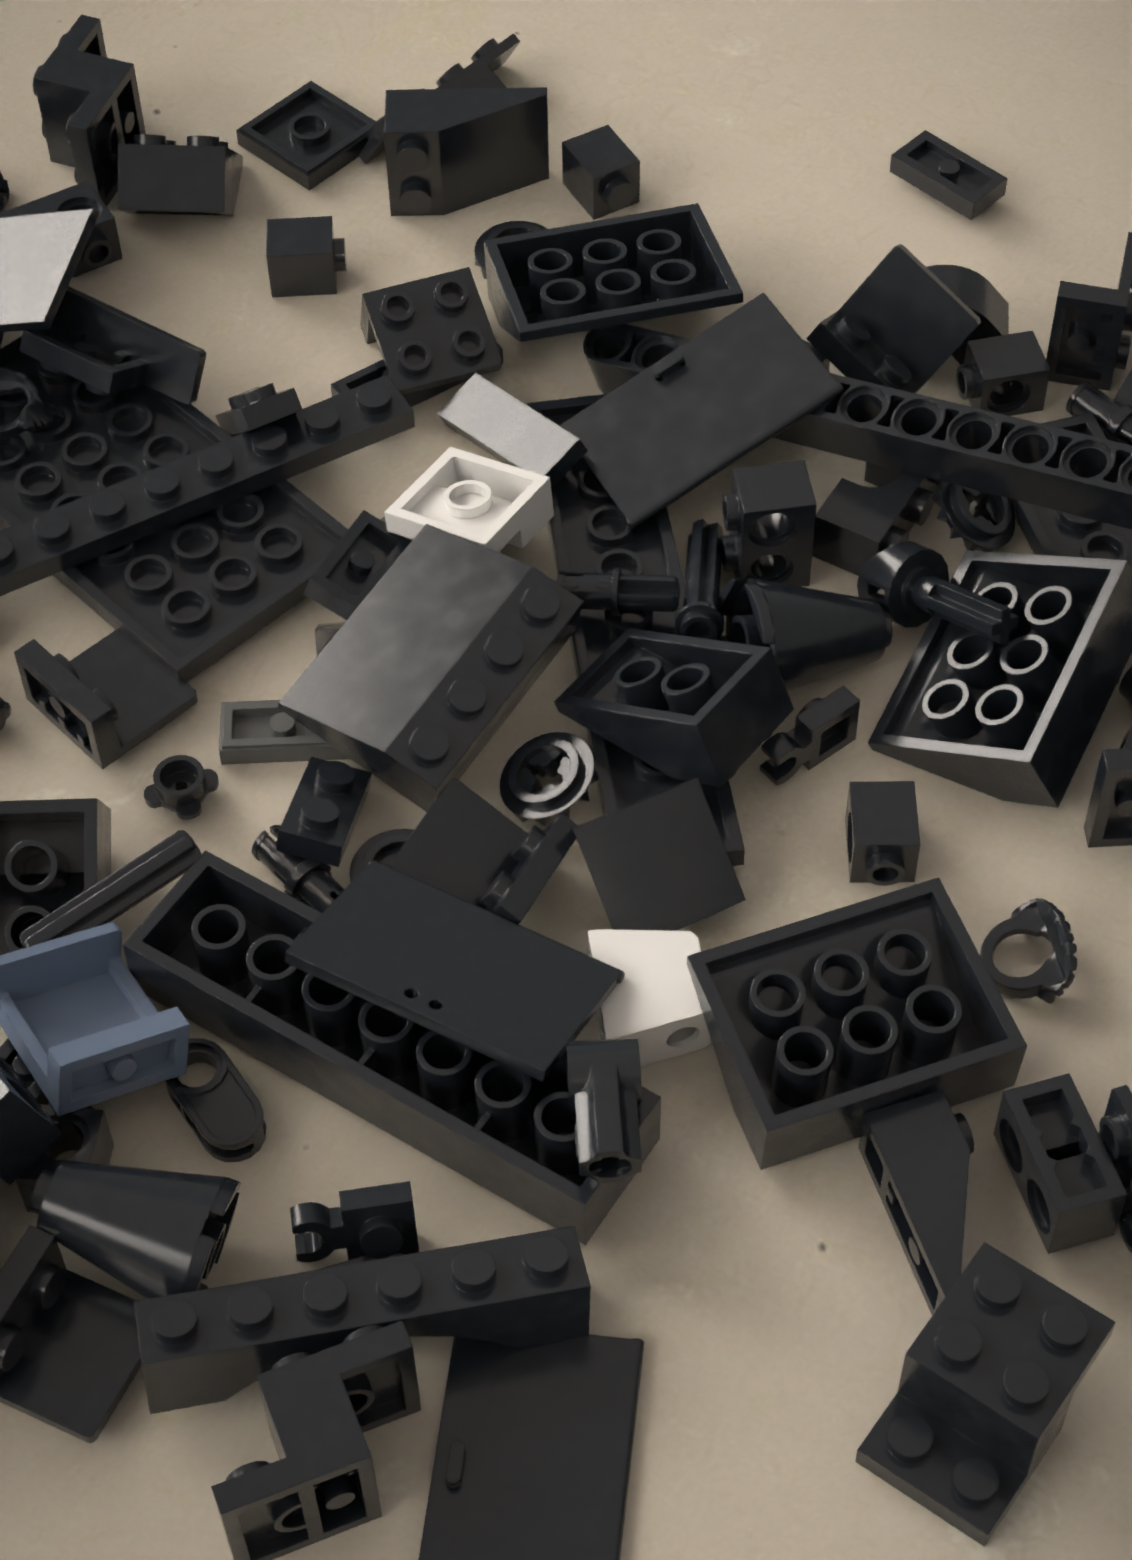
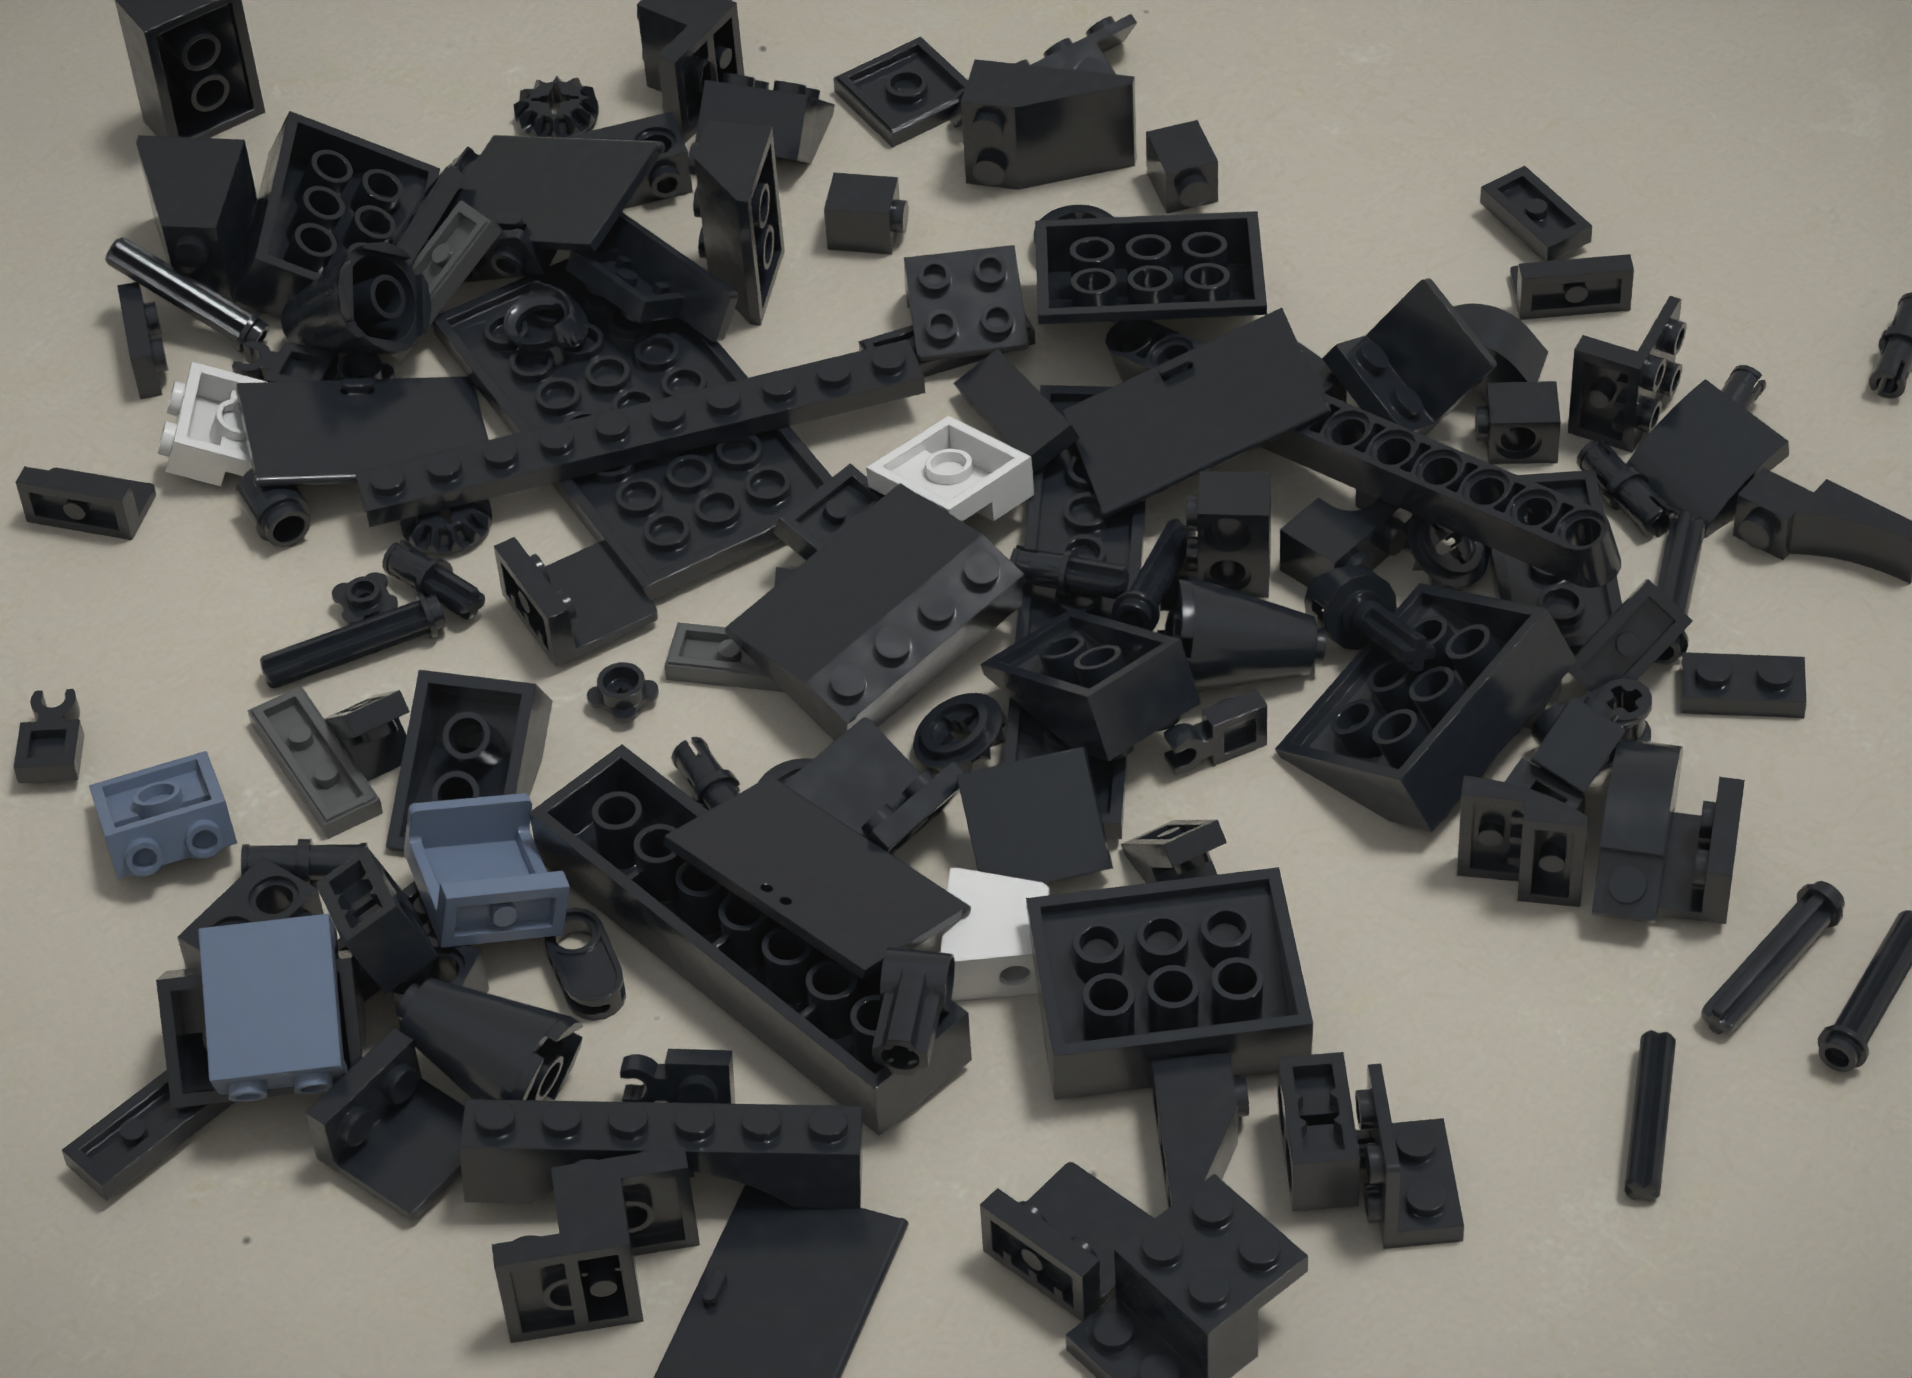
camera: 15 degrees right, 5 degrees down
(118, 891) = (541, 767): black axle -> none
(184, 265) = (739, 211): none -> black slope
(258, 408) = (777, 354): black plate -> none
(324, 811) = (744, 731): black plate -> none
(809, 873) = (1175, 850): none -> black slope
(831, 1332) = (1062, 1237): none -> black bracket
(882, 832) = (1256, 825): black brick -> none
(1006, 237) = (1573, 286): none -> black panel
(1037, 919) = (1375, 926): black piece -> none

